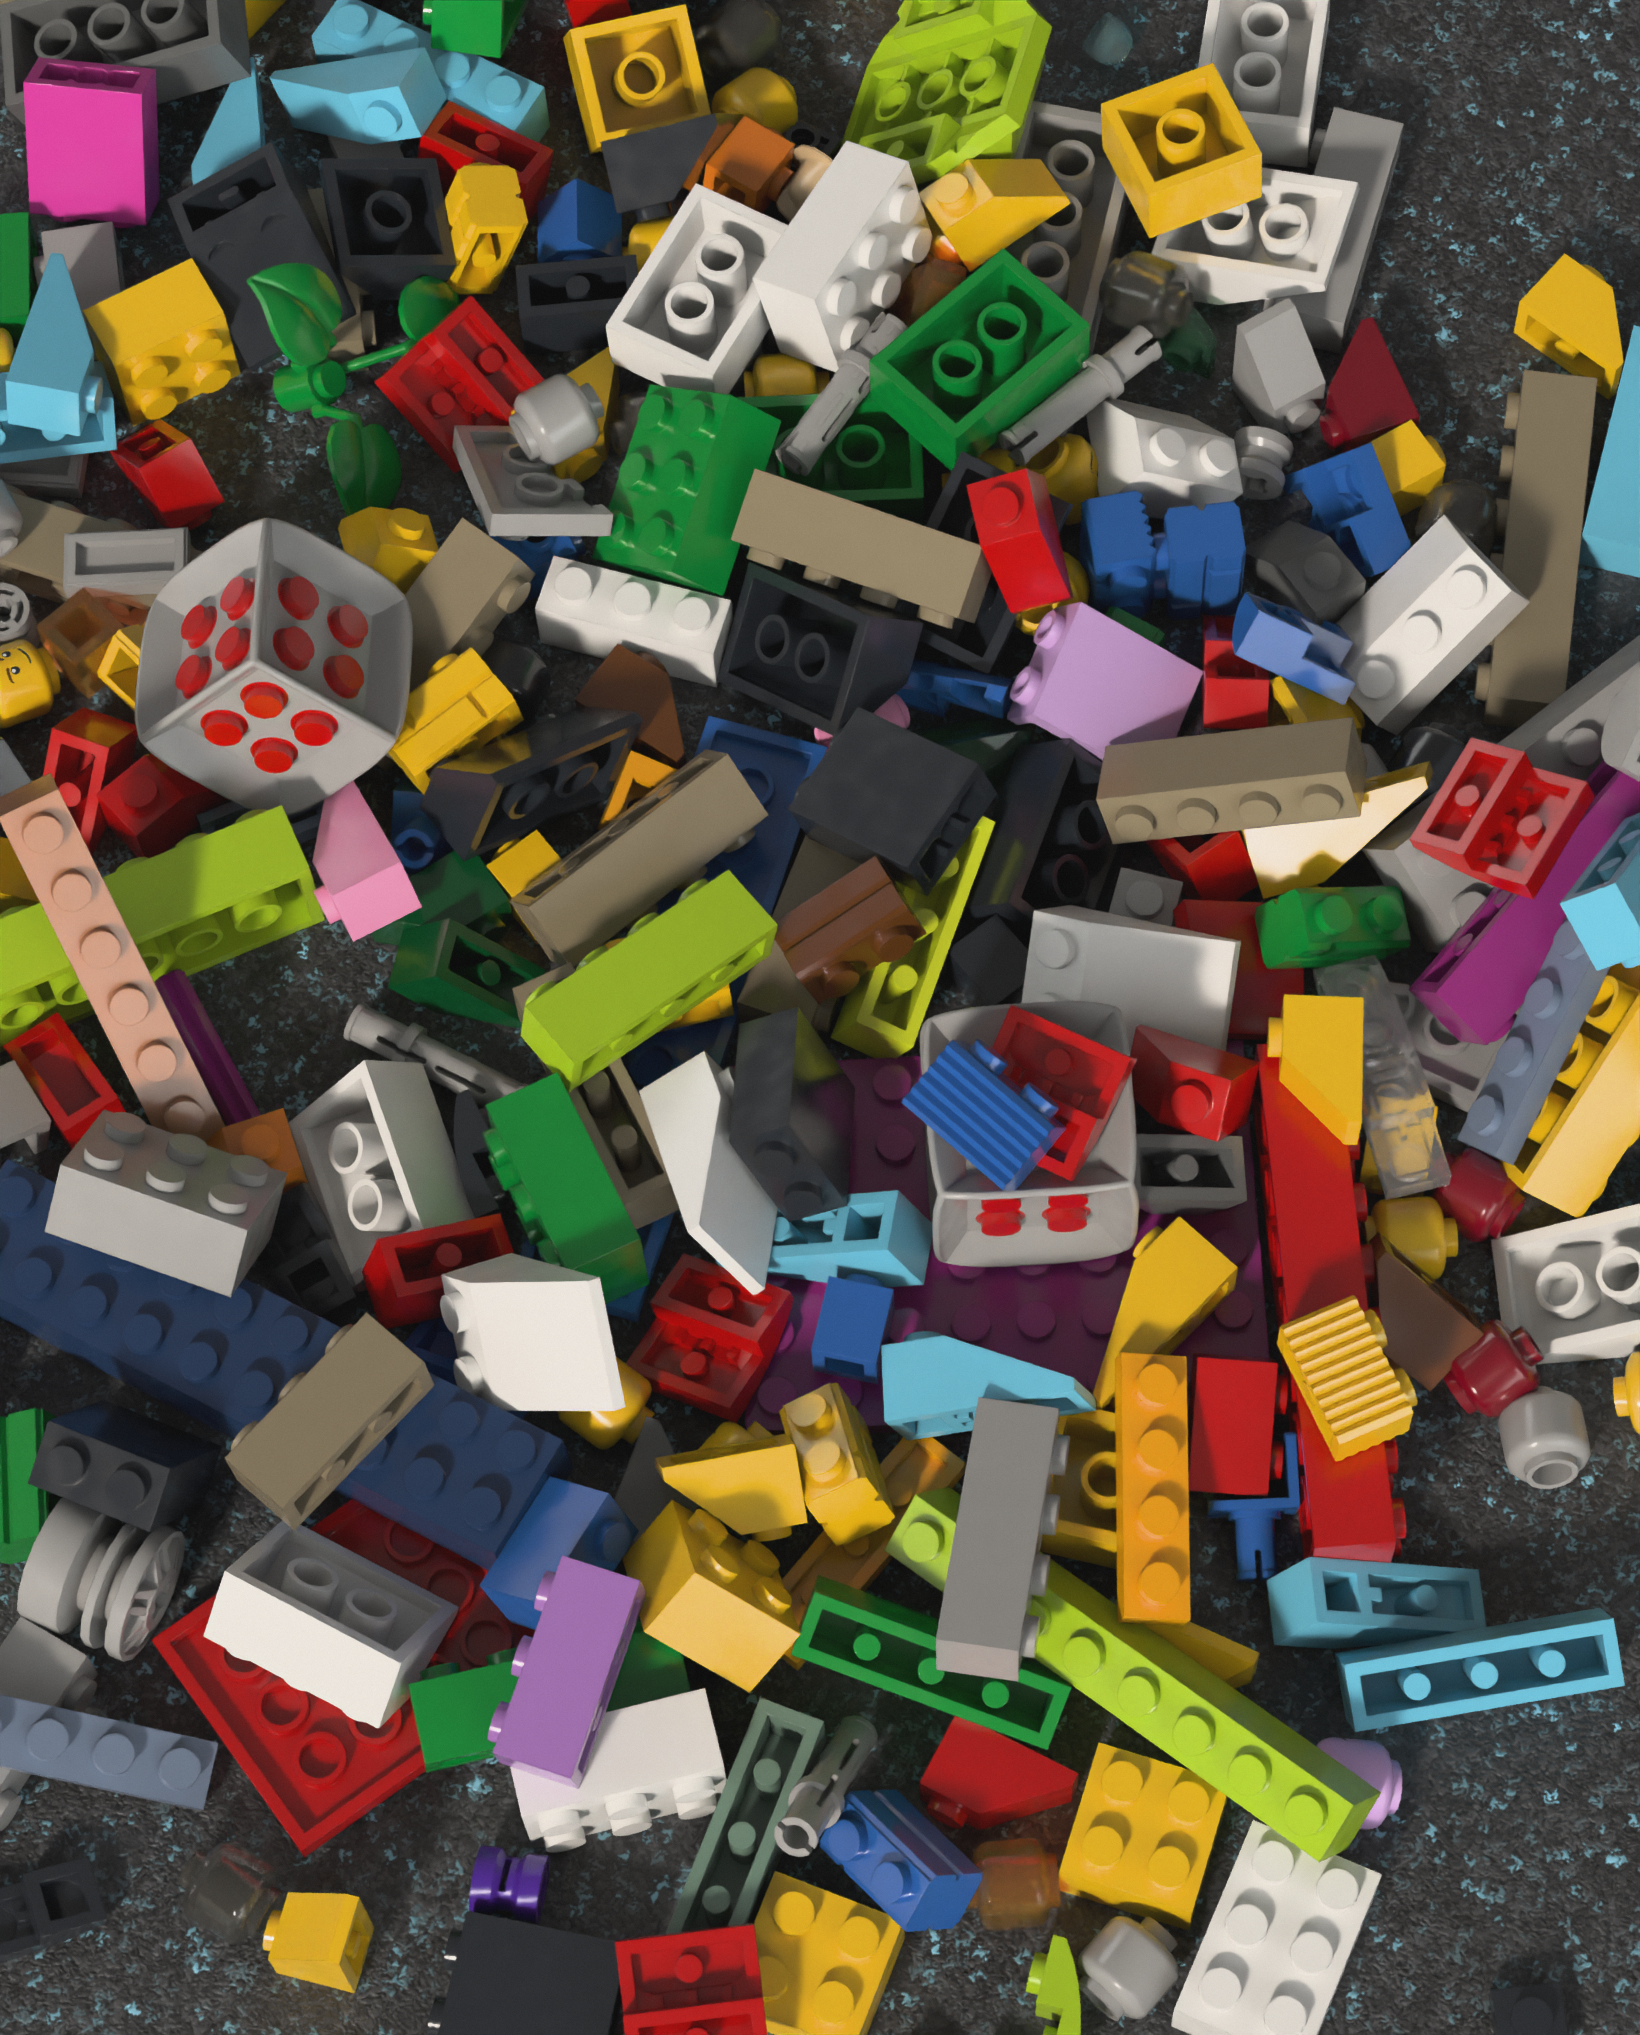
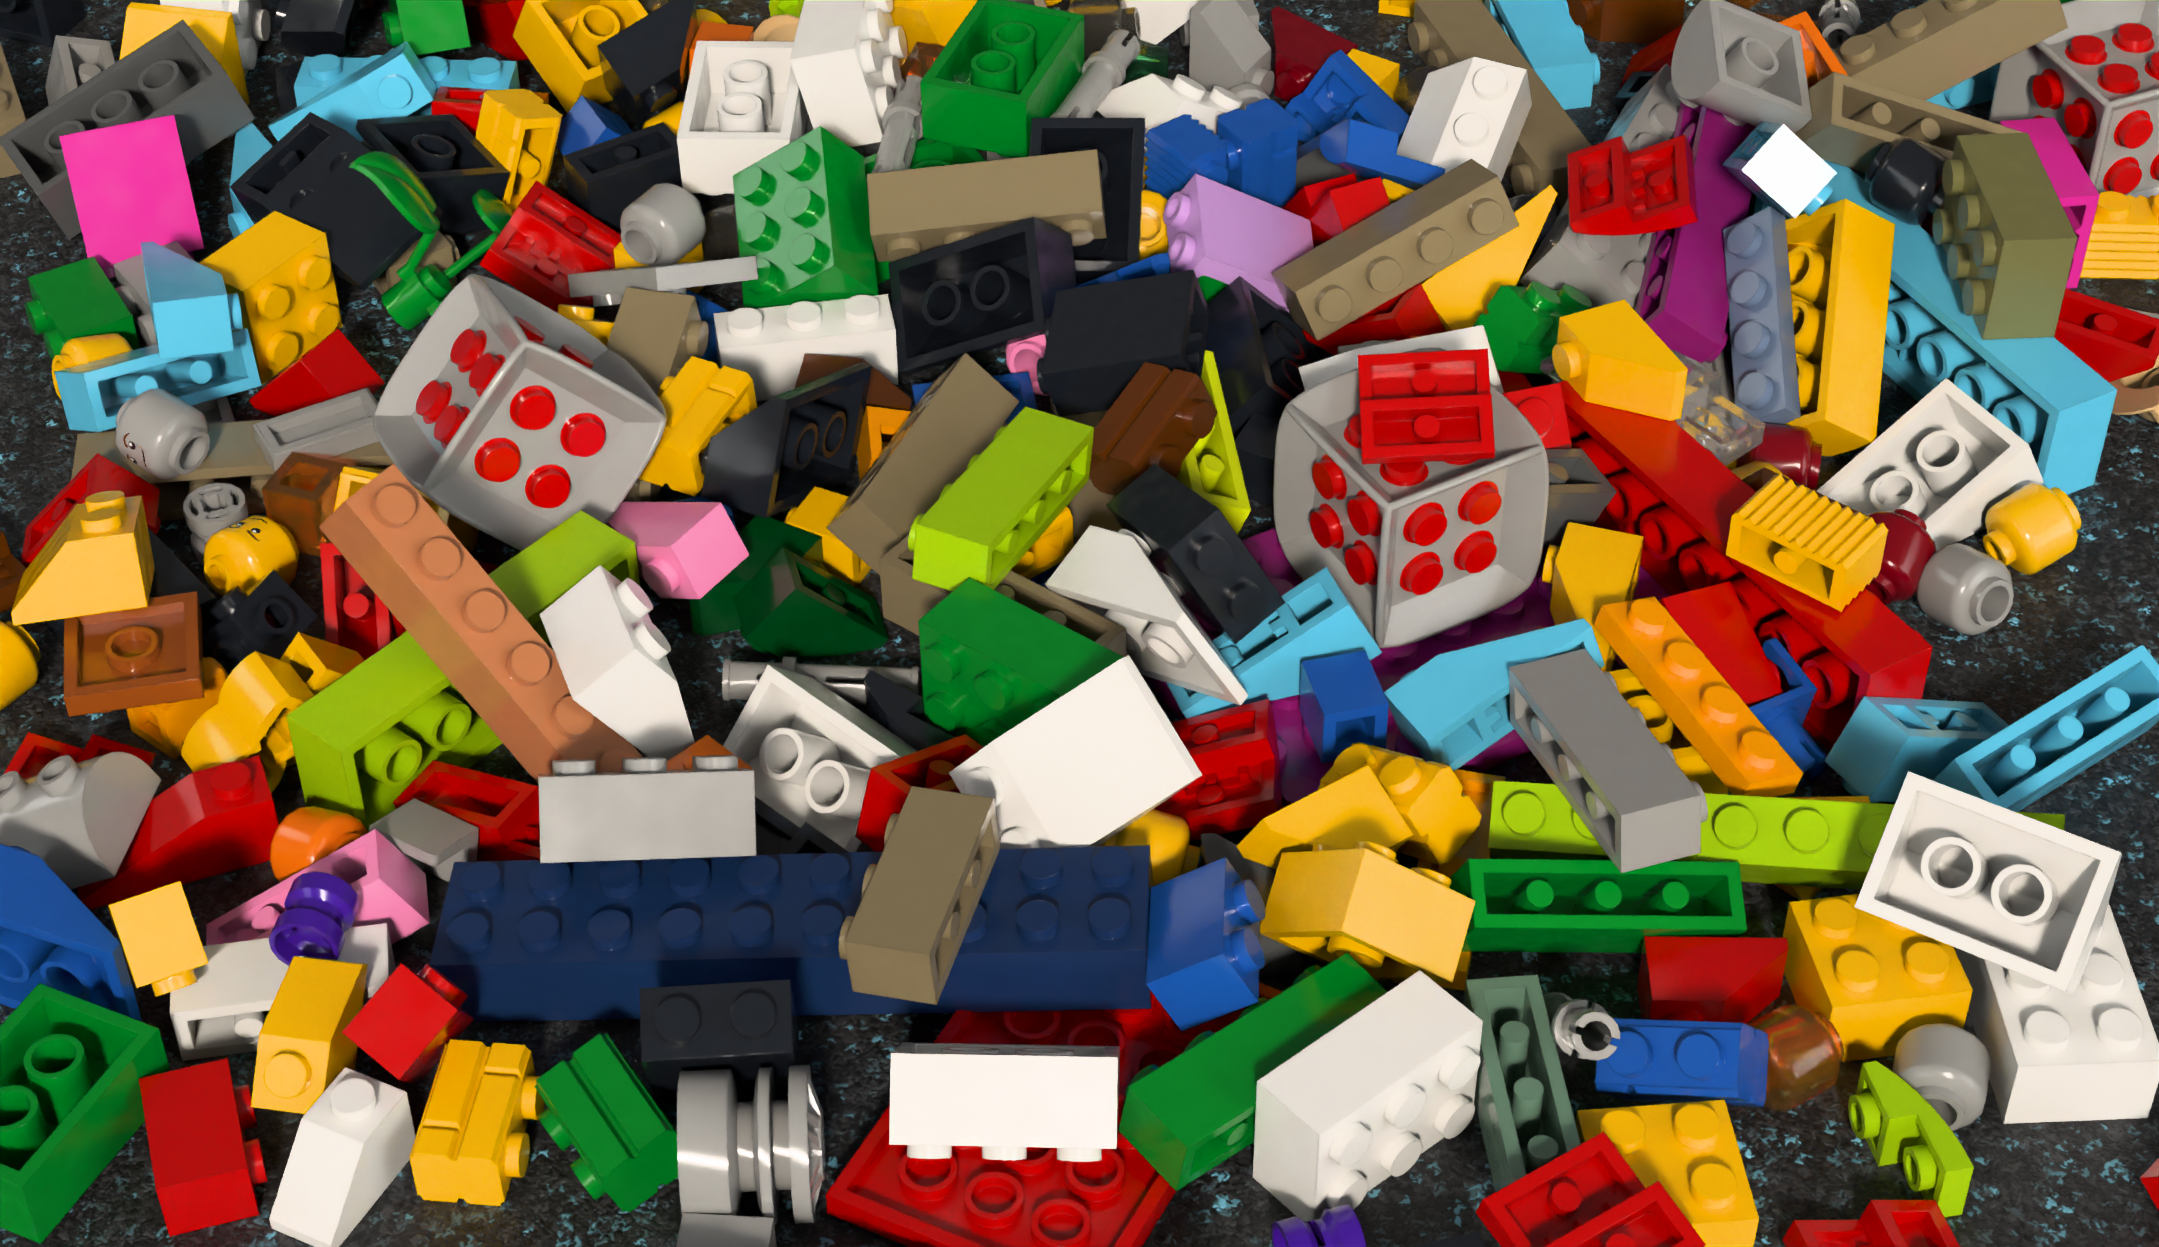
camera: 30 degrees left, 25 degrees down
(229, 1024) = (619, 662): none -> white slope
(566, 1671) = (1293, 984): medium lavender brick -> none
(985, 1112) = (1396, 416): blue brick -> none
(1020, 539) = (1126, 144): red slope -> none
(1214, 1860) = (1990, 882): none -> white slope

